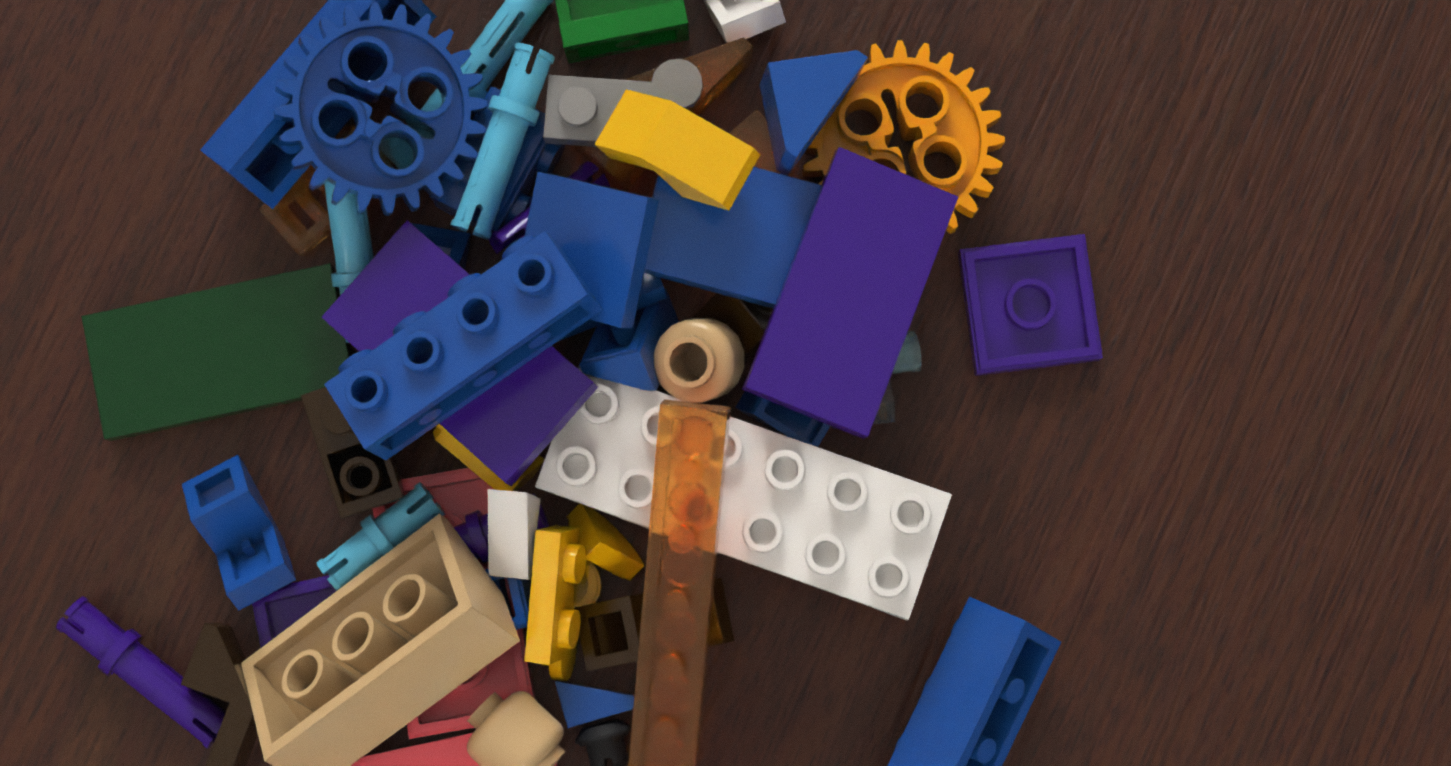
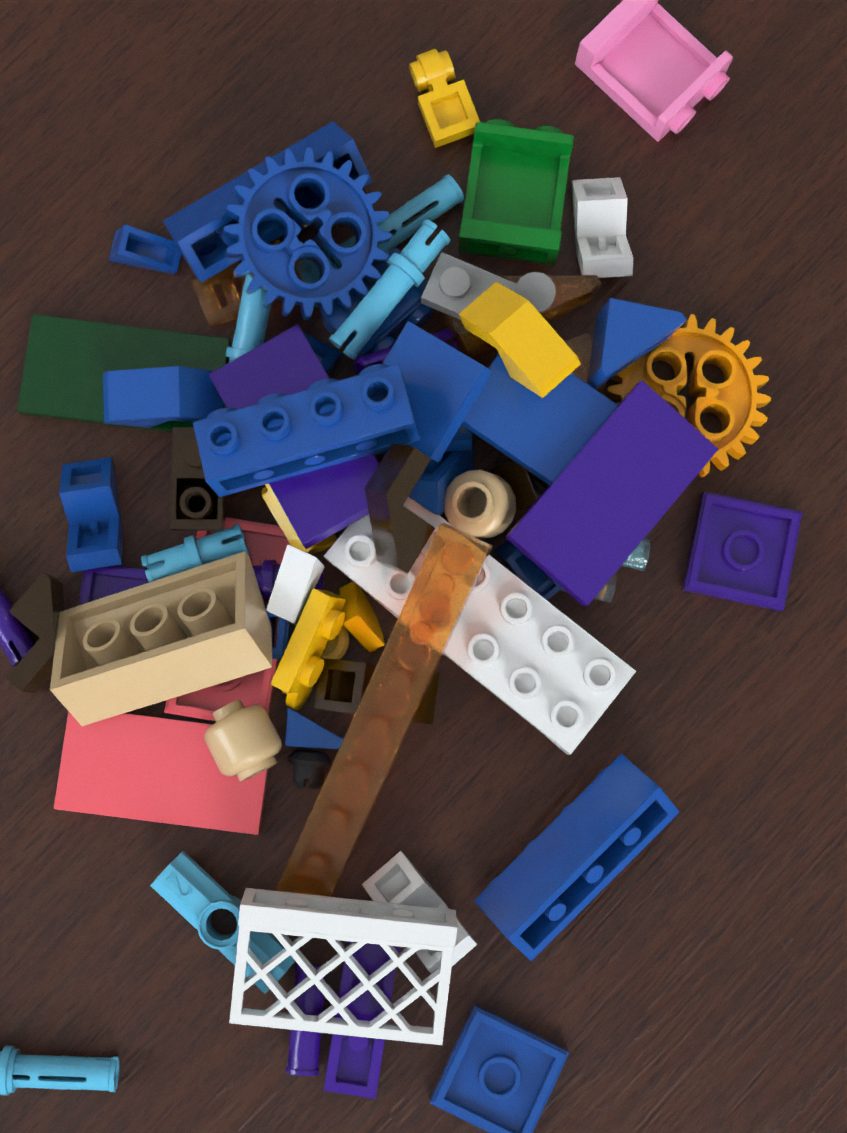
camera: 15 degrees right, 0 degrees up
(190, 191) = (144, 250): none -> blue piece
(271, 363) = (158, 396): none -> blue slope
(611, 428) = (396, 530): none -> dark brown slope

